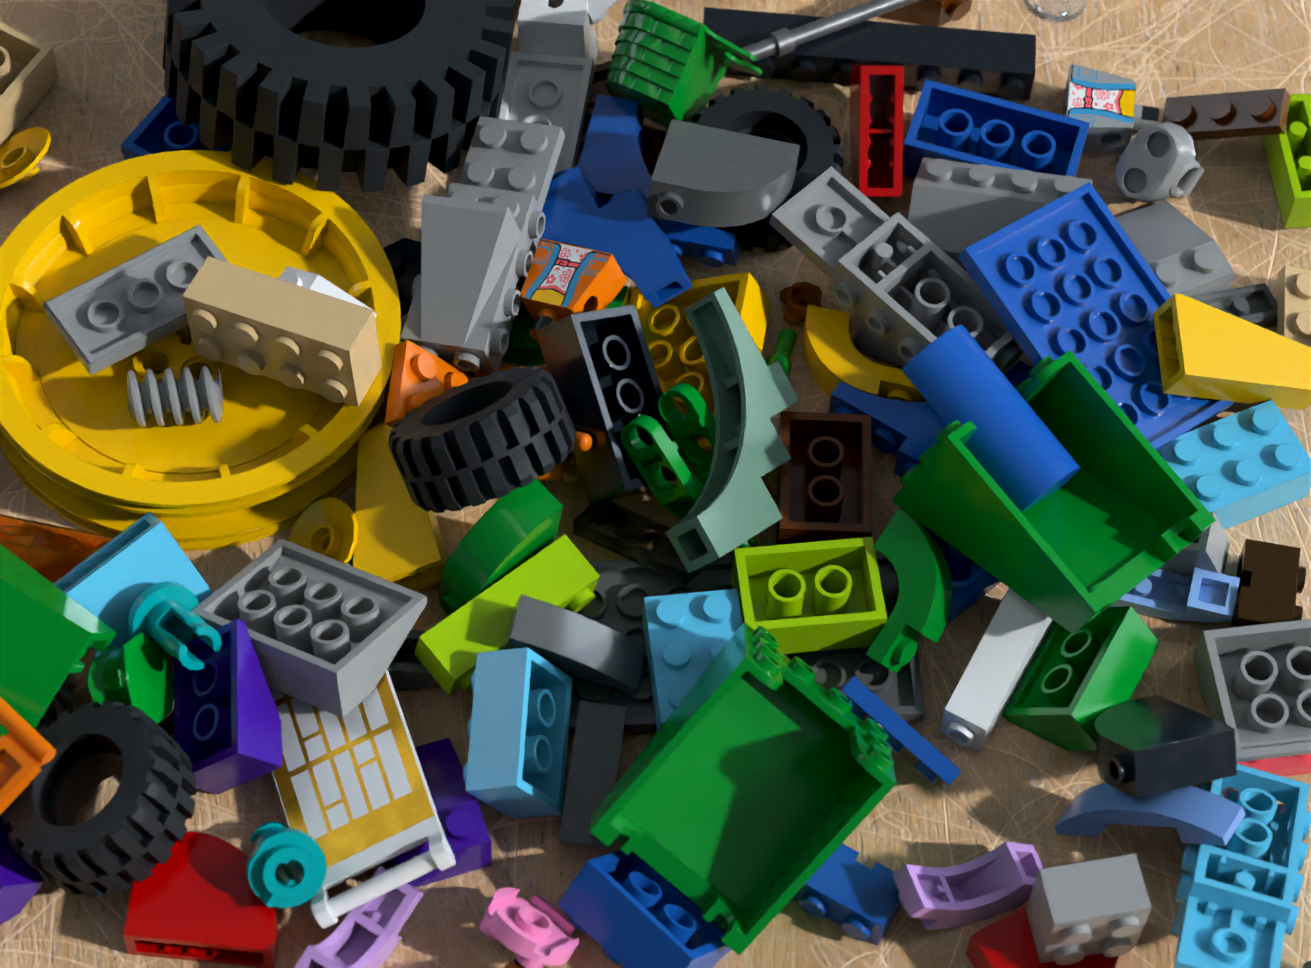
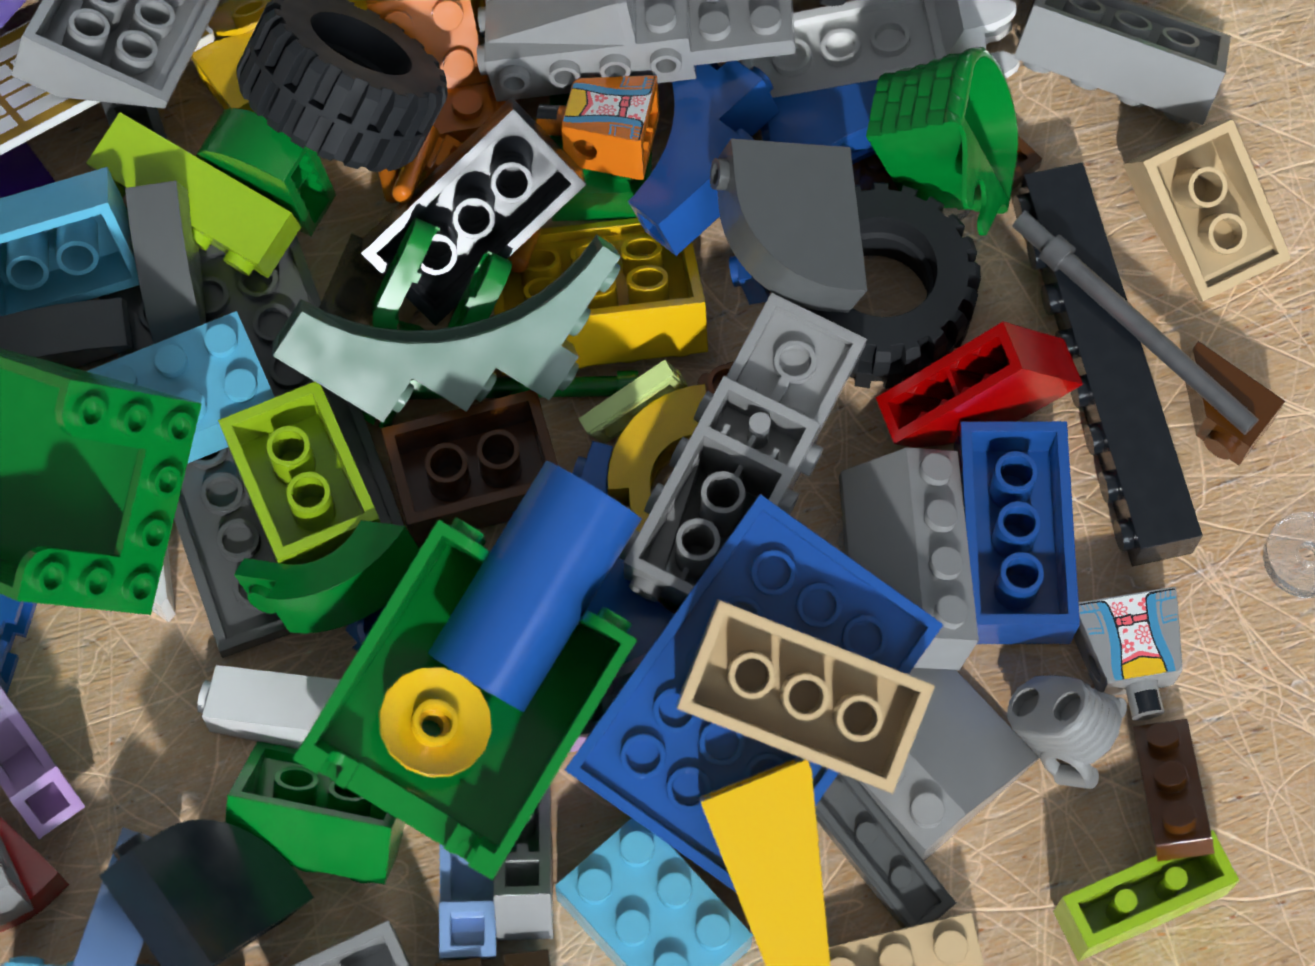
camera: 75 degrees right, 10 degrees up
(803, 359) = (615, 412): none -> yellowish green tile
(931, 761) = (178, 626): blue plate -> none
(1075, 528) = (440, 698): none -> yellow dish
(1127, 277) = (805, 696): none -> tan brick

